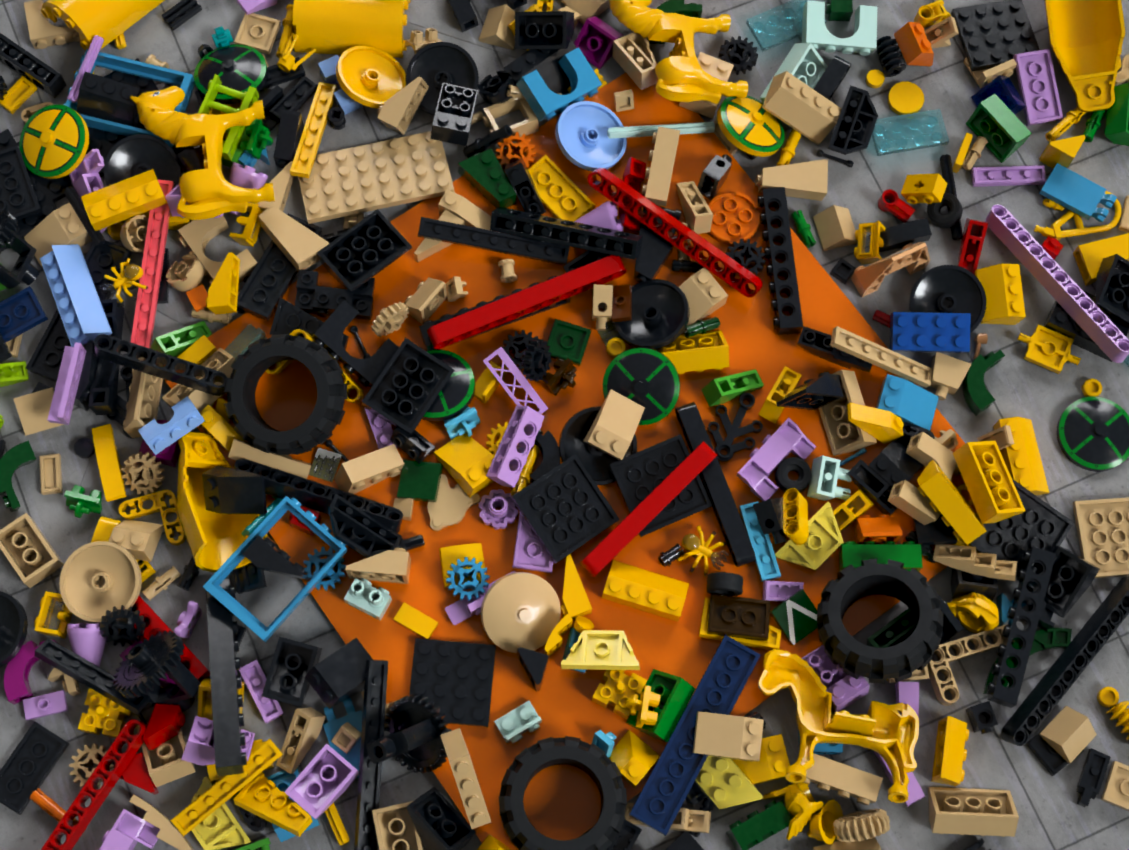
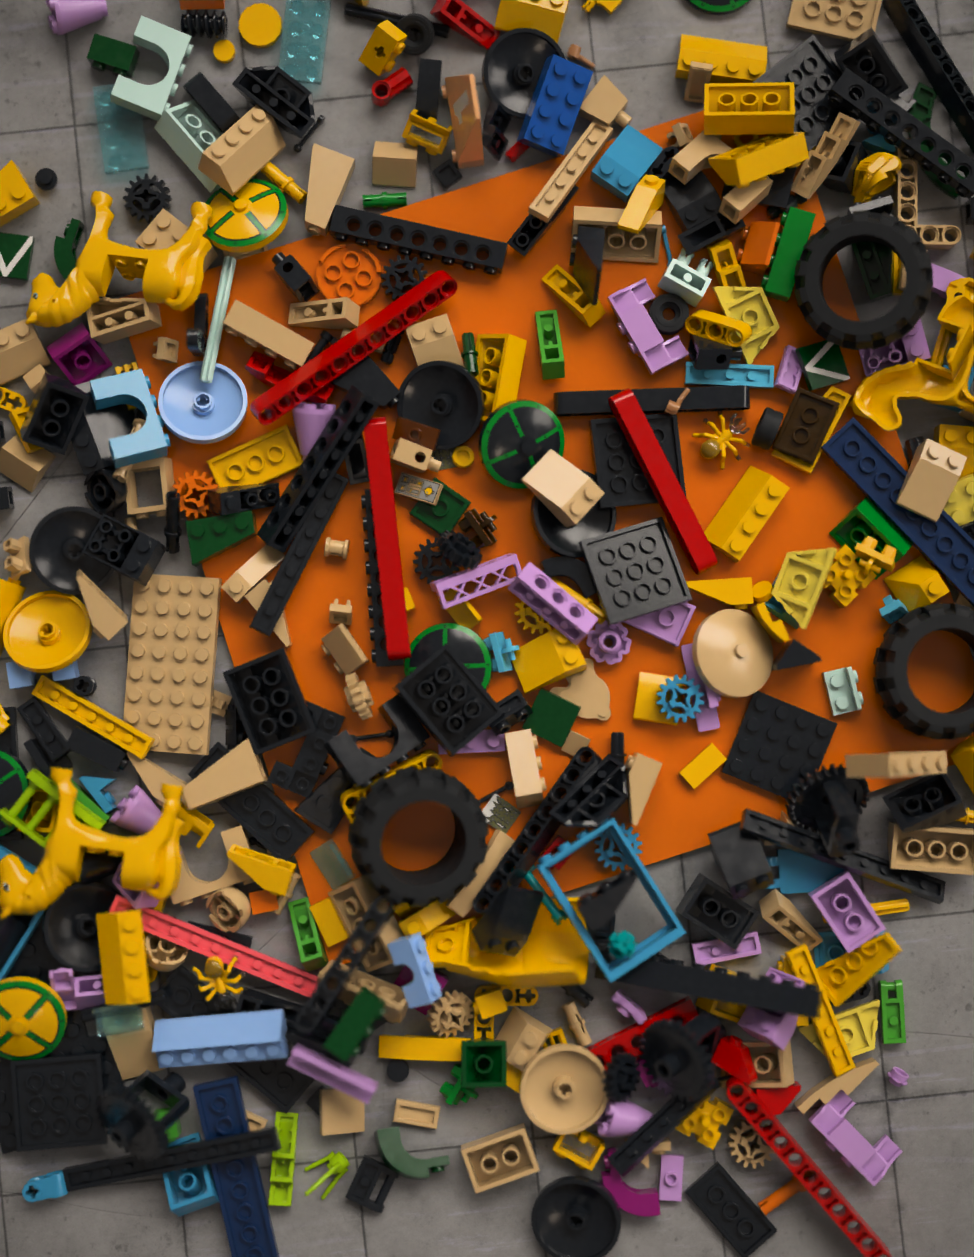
camera: 70 degrees left, 15 degrees up
(72, 211) = (118, 1019): none -> clear light blue panel
(106, 507) = (483, 1063): none -> dark green slope
(111, 385) = (355, 1024): none -> dark green wedge
(160, 502) = (490, 1003): none -> yellow brick
(238, 586) = (622, 944): none -> teal gear
(258, 139) = (93, 784): green hips -> none
(346, 737) = (803, 872): tan slope -> none
(367, 598) = (665, 809): light aqua brick -> none
(483, 337) = (408, 600): none -> yellow tile
(577, 319) = (418, 489): none -> tile
(638, 117) = (198, 335): none -> black beam
(670, 555) = (715, 474): black pin -> none
(714, 499) = (673, 407): none -> medium nougat hand
(733, 431) = (598, 360): black plant -> none
(891, 292) = (493, 131): none -> black slope
(973, 386) = (628, 81): dark green arch -> none

